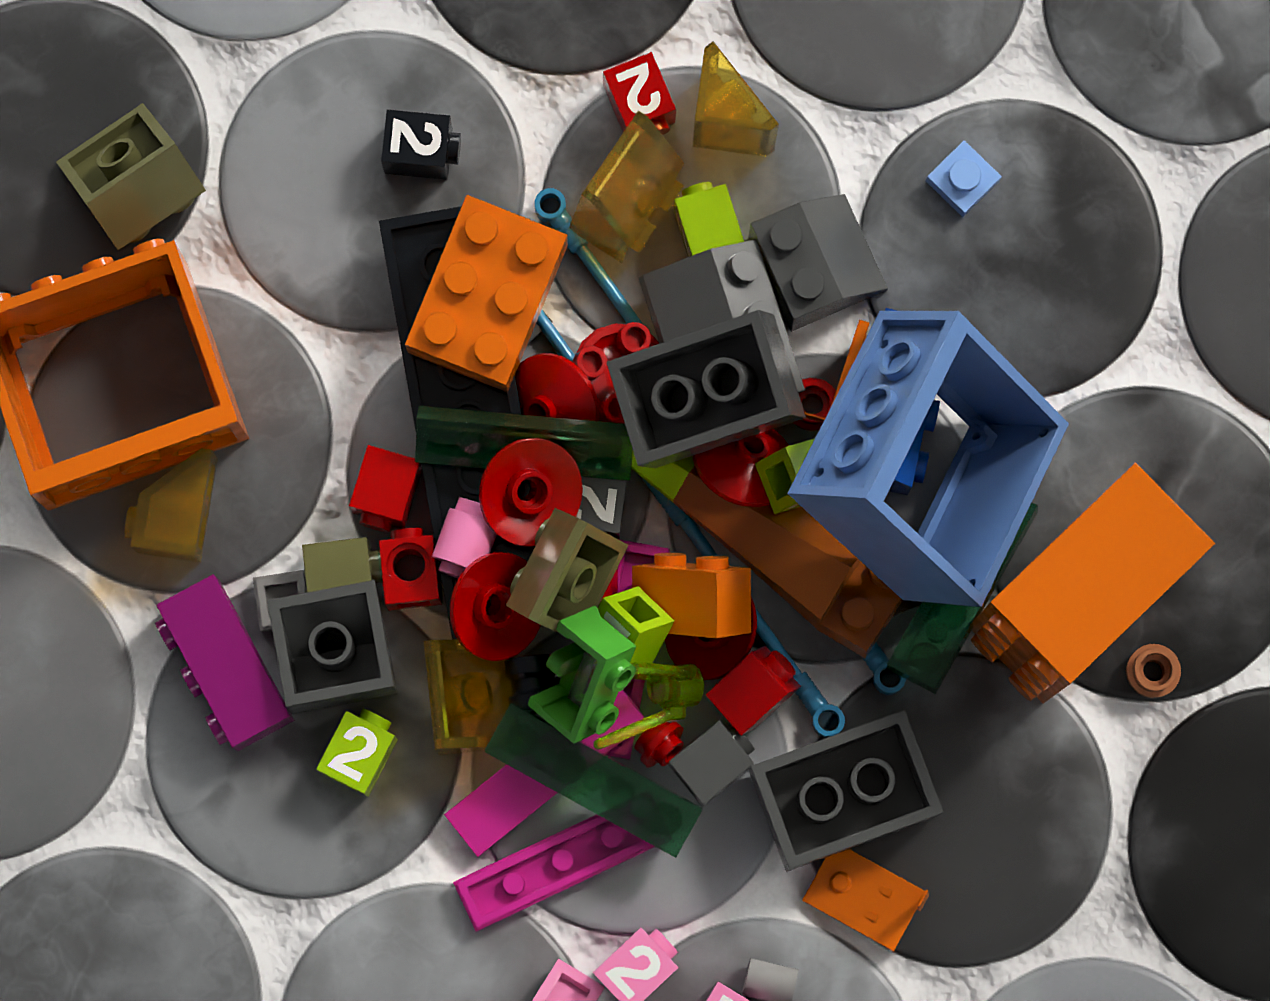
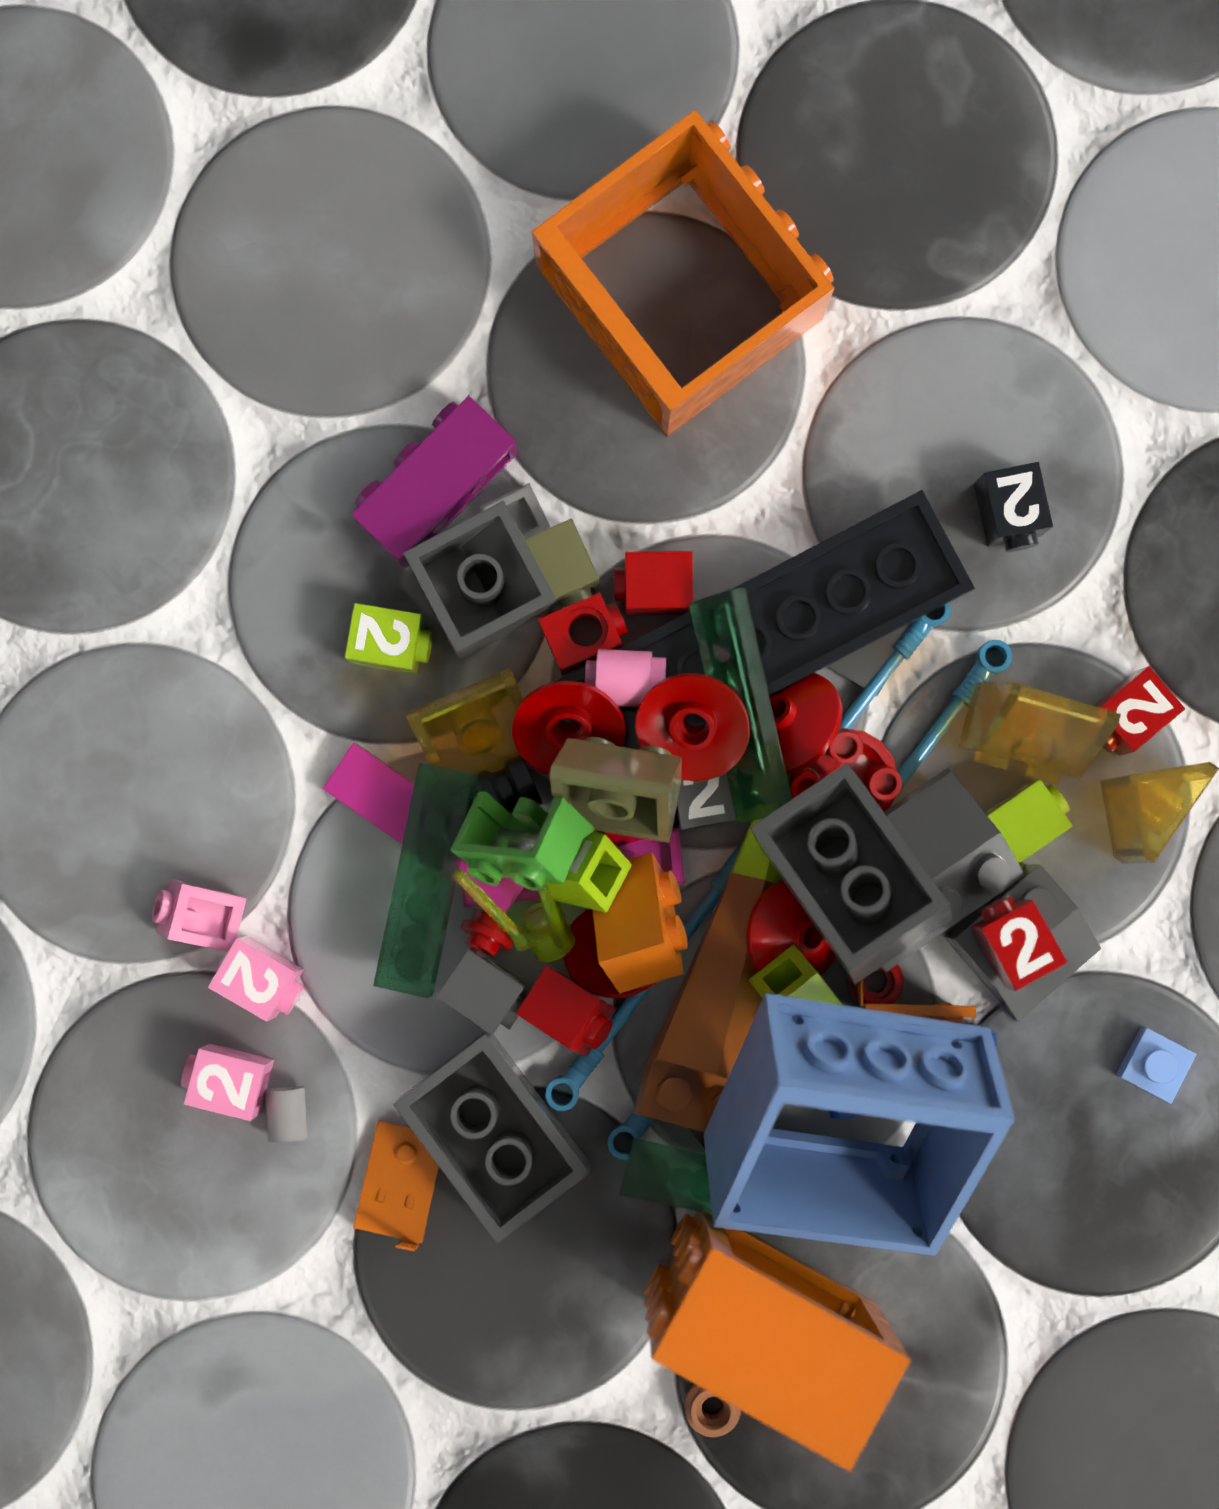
camera: 75 degrees right, 5 degrees up
(131, 176) = (888, 235): olive slope -> none
(175, 510) = (571, 386): clear yellow slope -> none
(487, 293) = (882, 619): orange brick -> none
(546, 869) = (328, 855): dark pink tile -> none
(812, 264) = (1017, 942): none -> red brick

